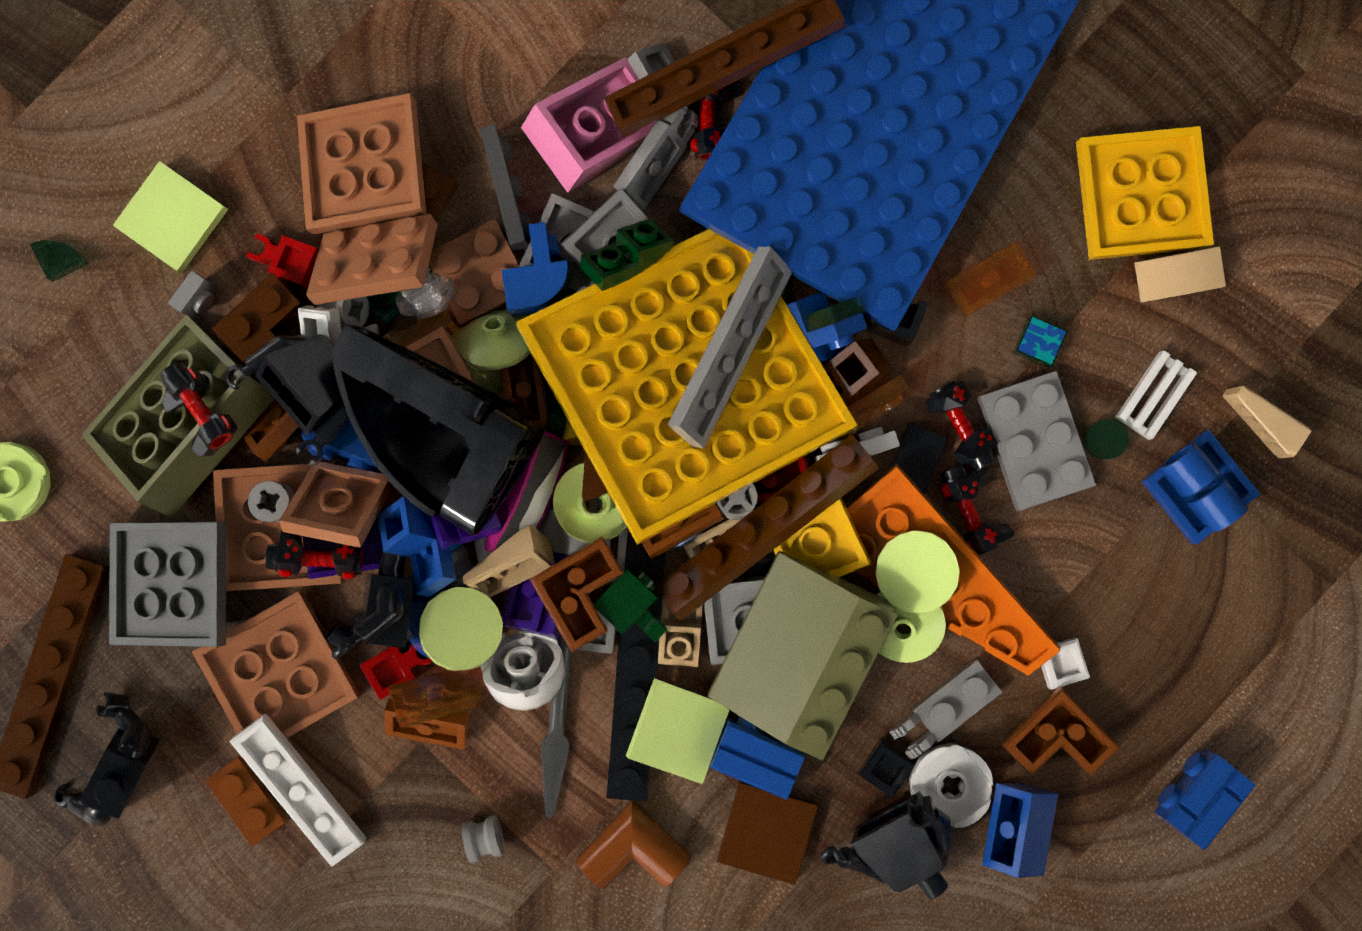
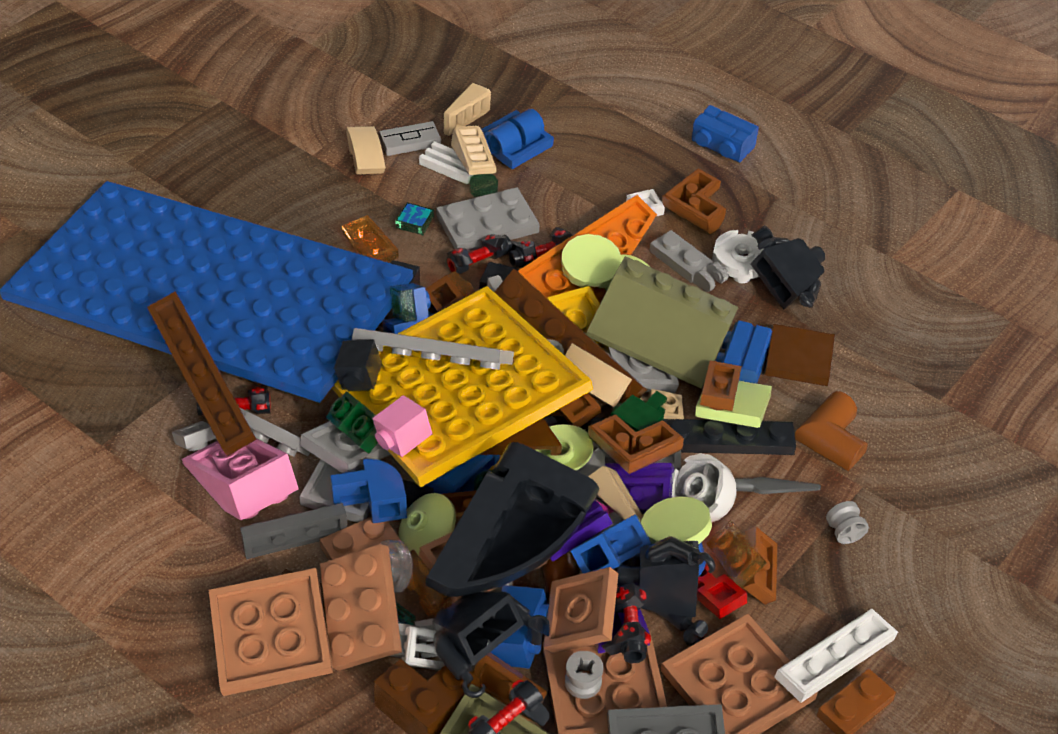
camera: 105 degrees left, 40 degrees down
(288, 260) = (355, 692): red plate -> none
(588, 302) = (402, 426): none -> bright pink brick
(678, 556) = (606, 381): none -> tan slope
(682, 715) = (720, 386): none -> dark orange plate
(718, 254) = (358, 365): none -> black brick
(885, 768) = (738, 291): black tile -> none
(1020, 829) = (756, 211): blue brick -> none
(1144, 193) = (306, 167): yellow plate -> none
(1188, 422) = (472, 146): none -> tan slope
(1210, 339) = (409, 138): none -> light grey tile

